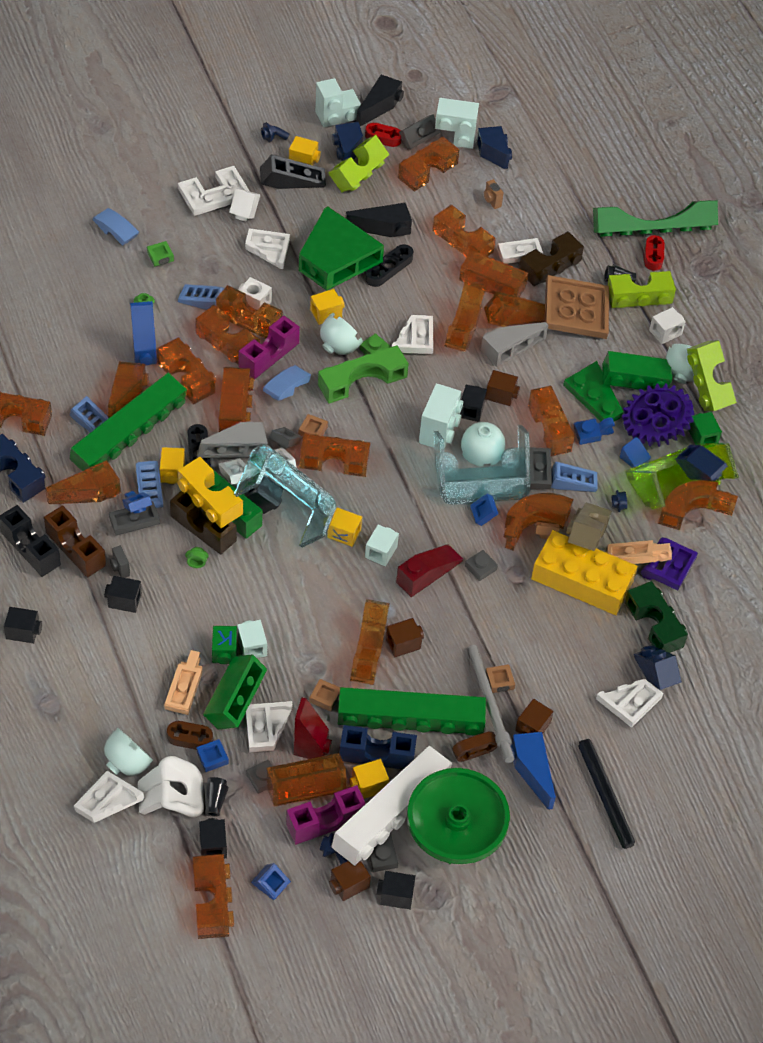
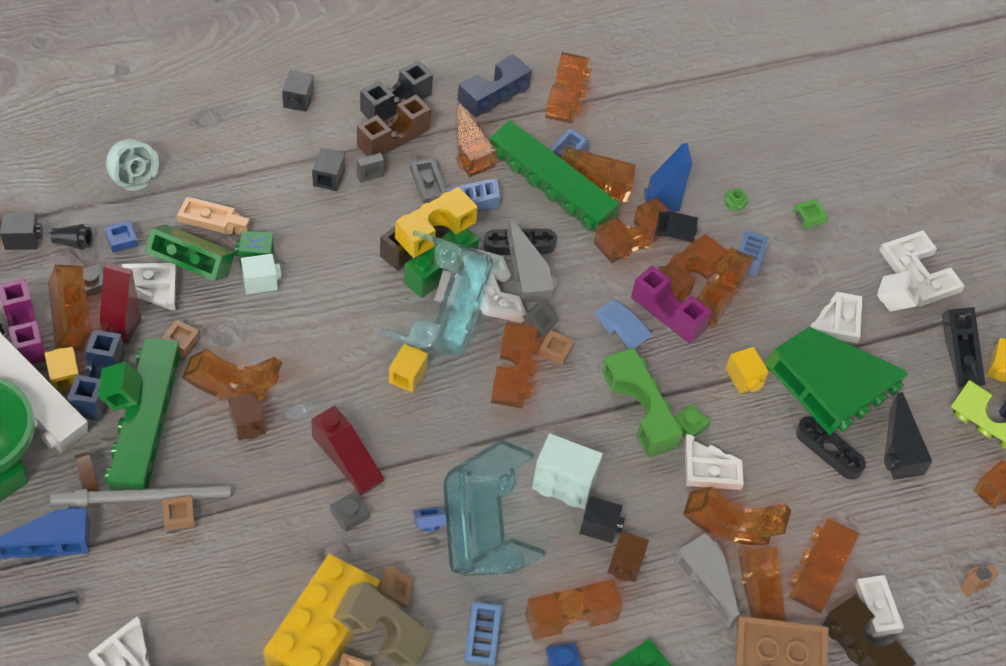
camera: 90 degrees right, 0 degrees up
(107, 797) = (85, 151): white wing -> none
(118, 226) = (845, 174): medium blue slope -> none
(136, 502) = (440, 175): blue plate -> none
(160, 794) = (62, 203): white piece -> none
(171, 461) = (496, 212): yellow brick -> none
(189, 734) = (145, 219): reddish brown beam -> none
(192, 335) = (676, 226): none -> black brick
(196, 557) = (375, 231): bright green plate -> none
(235, 397) = (593, 272): clear orange brick -> none
(256, 293) = (755, 299): white brick -> none
(338, 336) = (697, 377): light aqua cylinder -> none
(381, 545) = (380, 403): light aqua brick -> none
(396, 718) = (119, 386): none -> green brick
(450, 226) = (908, 519): clear orange arch -> none
(483, 444) = (539, 525): light aqua cylinder -> none
(534, 718) = (111, 542): reddish brown brick -> none
(537, 507) = (426, 569): clear orange arch -> none
(540, 468) = (497, 590): dark grey plate -> none

